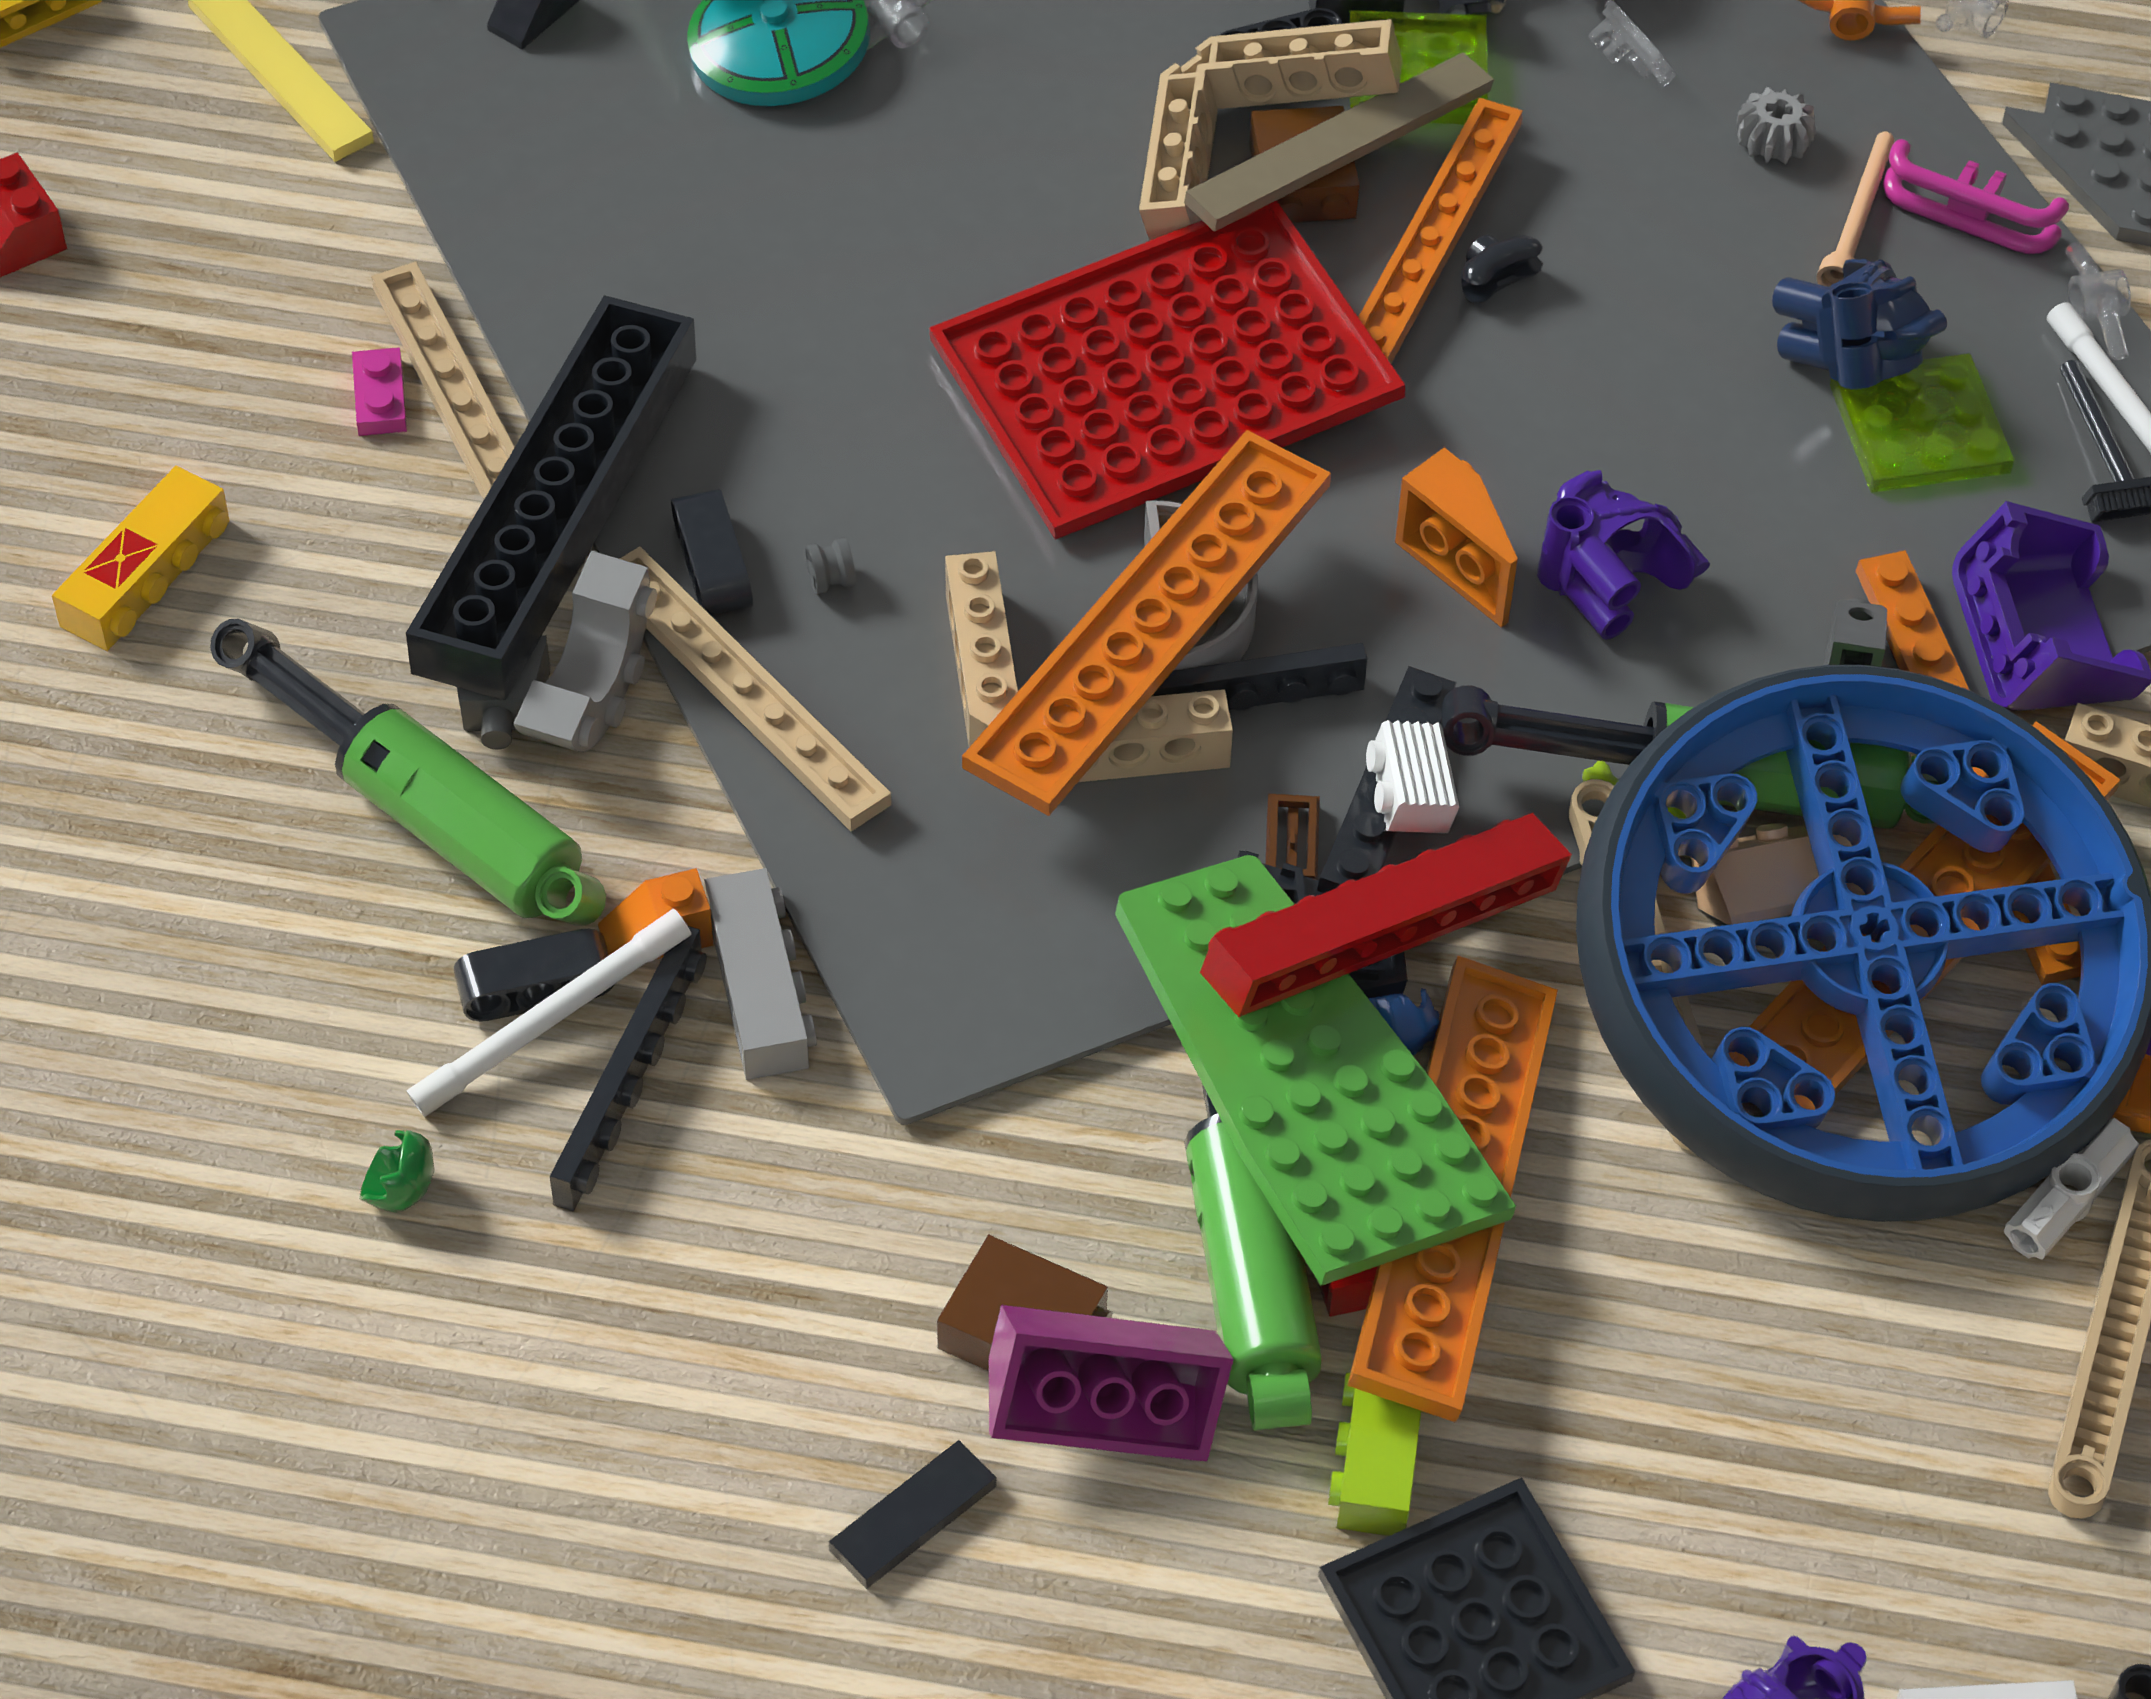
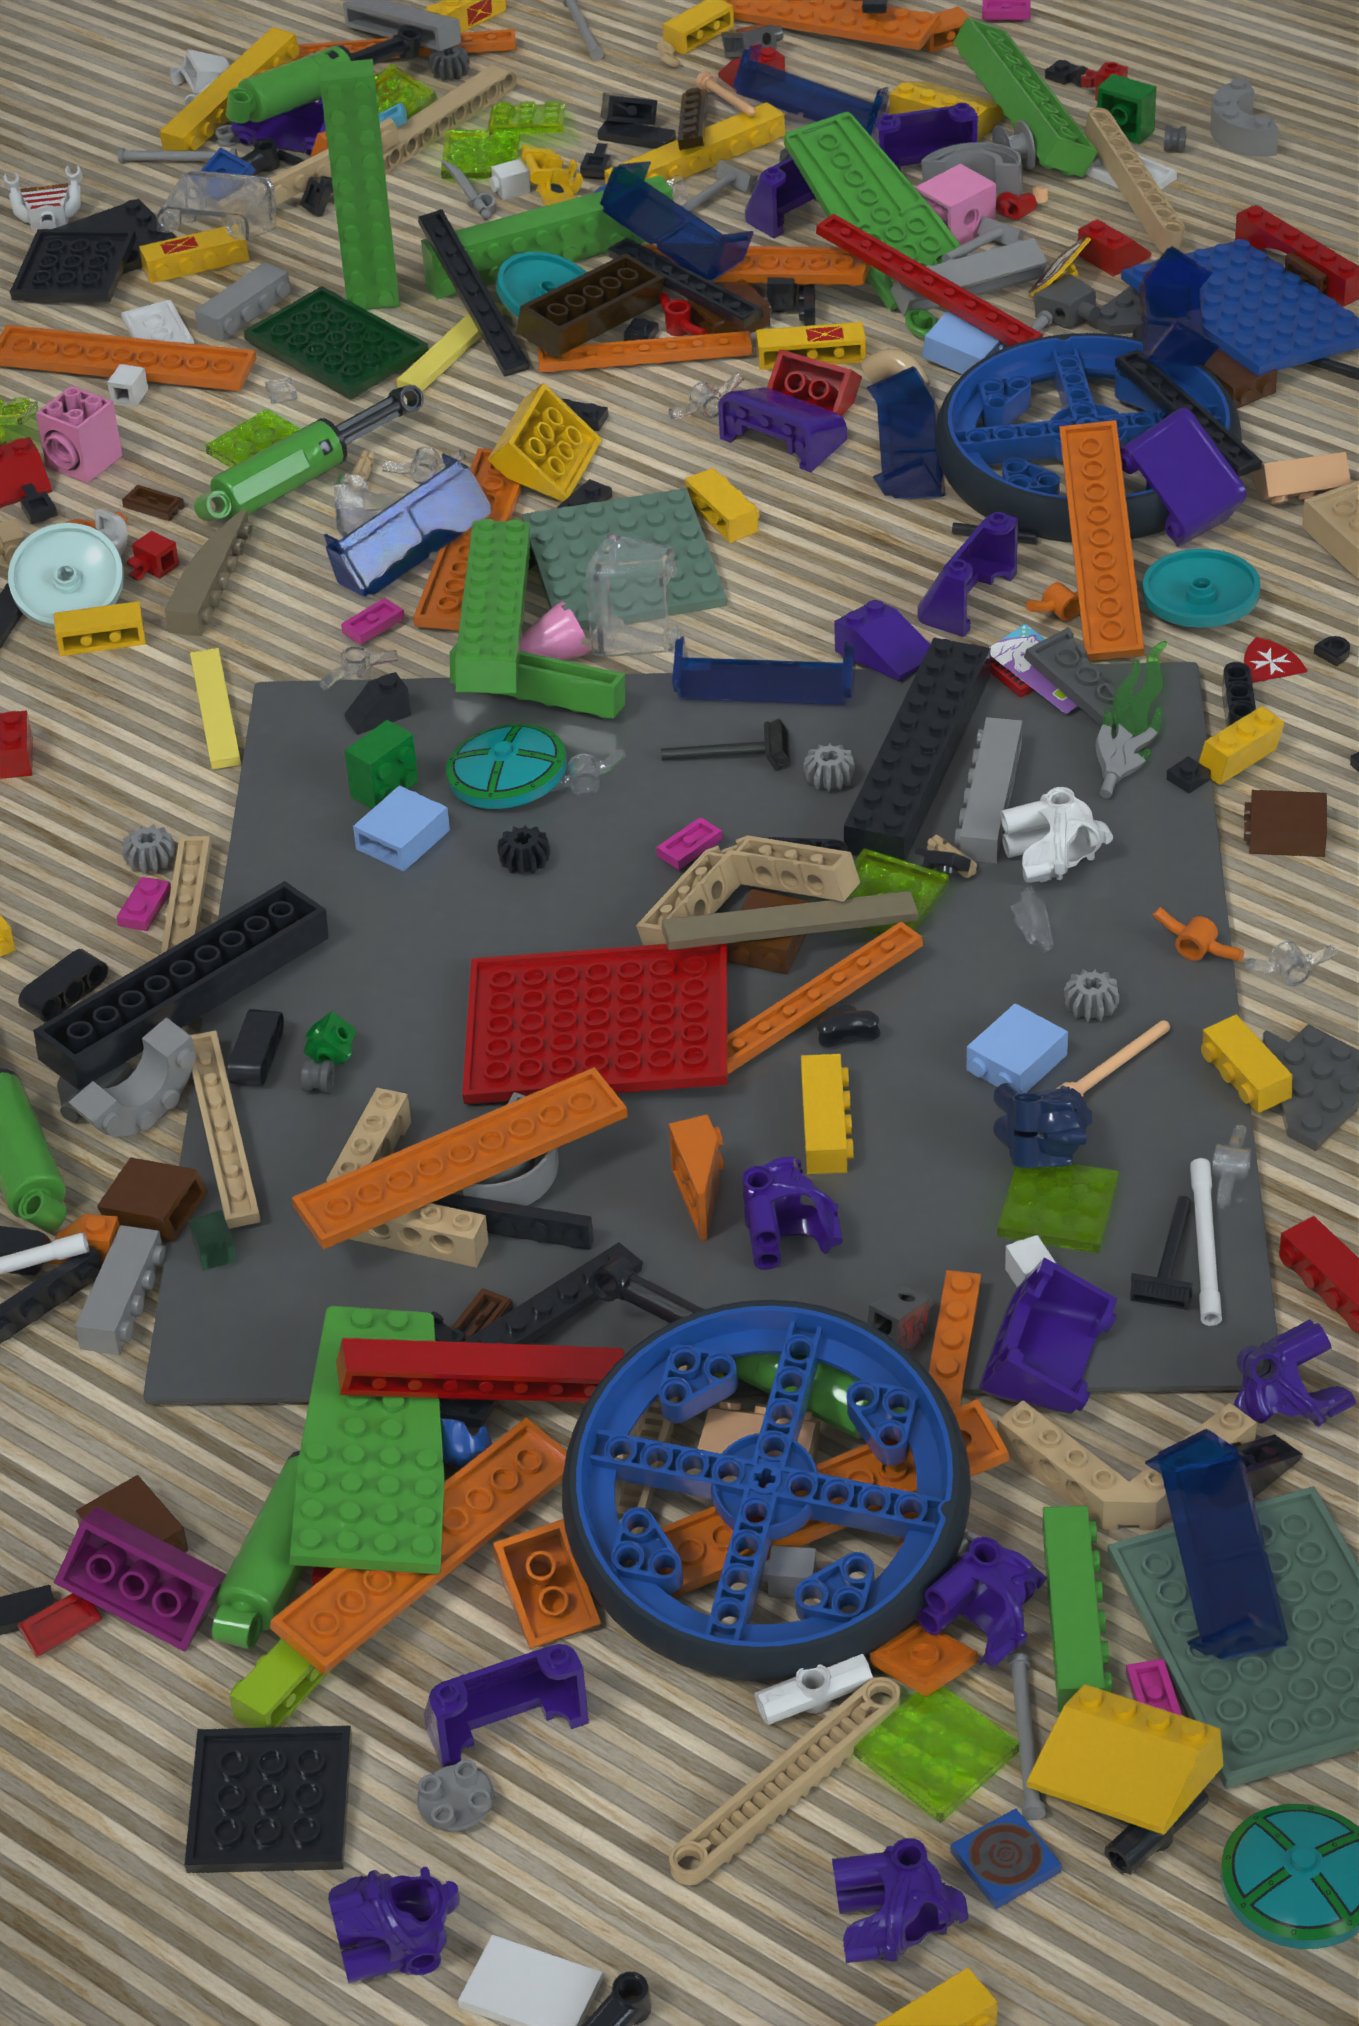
camera: 30 degrees right, 10 degrees down
(336, 308) = (148, 849): none -> light grey gear
(350, 550) = (63, 985): none -> black beam
(615, 84) = (381, 763): none -> green brick
(695, 168) = (401, 828): none -> light blue brick
(716, 821) = (154, 1196): none -> reddish brown brick
(817, 508) = (330, 1039): none -> green brick
(850, 855) = (212, 1240): none -> clear green brick
(890, 148) = (523, 849): none -> black gear
(1011, 1492) = (58, 1623): none -> red tile
(1108, 72) = (689, 843): none -> dark pink plate
(1413, 777) = (556, 1301): white brick -> none
(1551, 395) = (824, 1114): none -> yellow brick
(1635, 1178) = (545, 1584): none -> orange slope
(1664, 1390) = (541, 1678): none -> dark purple windscreen
(1718, 1519) = (455, 1796): none -> light grey dish
(1735, 231) = (1017, 1049): none -> light blue brick
(1950, 514) = (1024, 1257): none -> white brick
(1950, 1036) = (787, 1569): none -> light grey brick
(1969, 205) = (1189, 1078): dark pink piece -> none
(2034, 156) = (1246, 1064): none -> yellow brick

